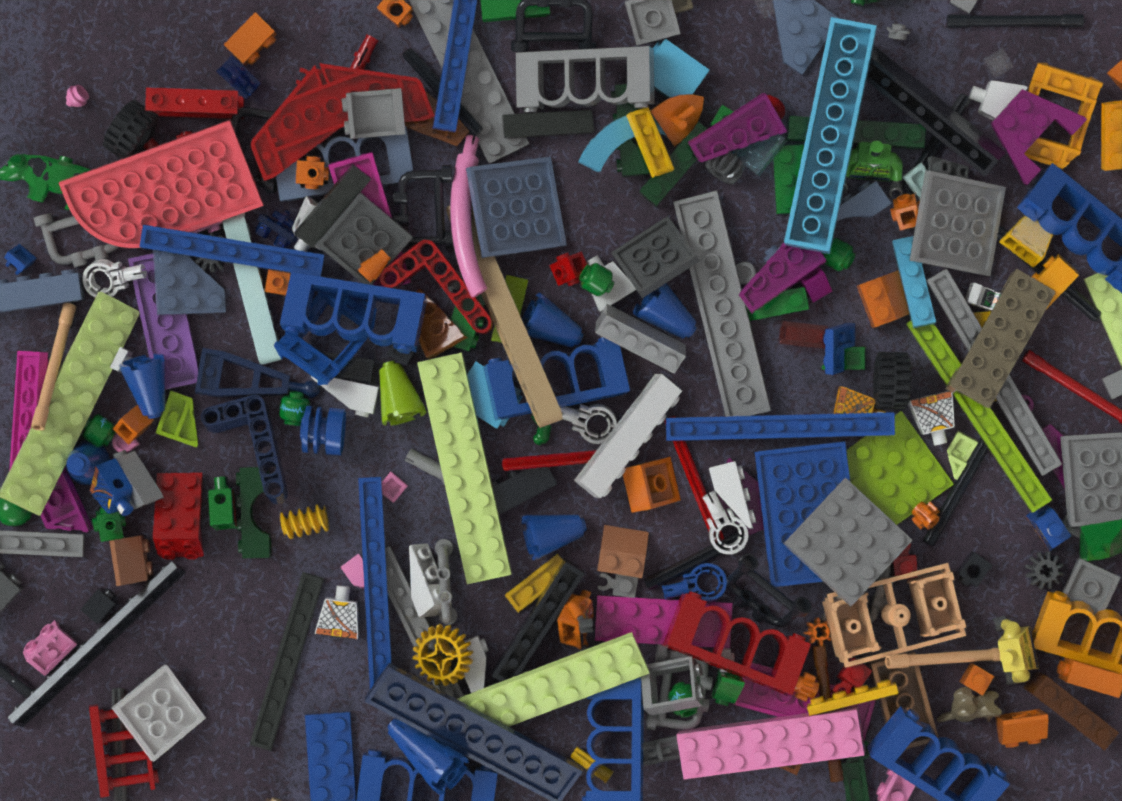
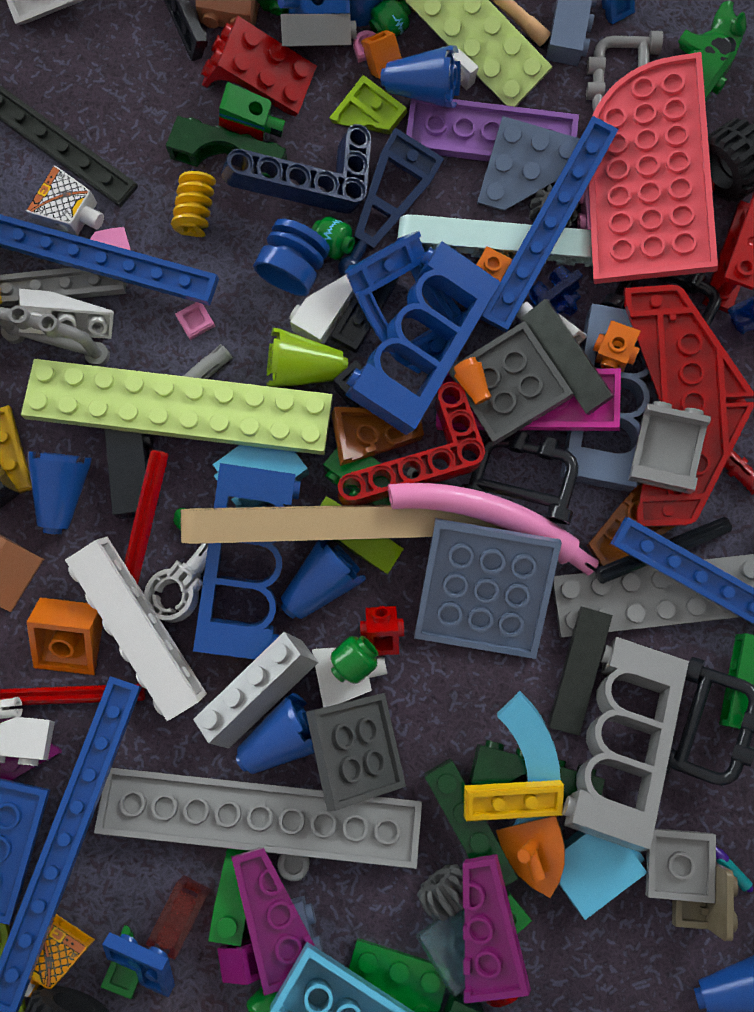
camera: 110 degrees right, 10 degrees down
(117, 276) = (562, 92): white pin -> none

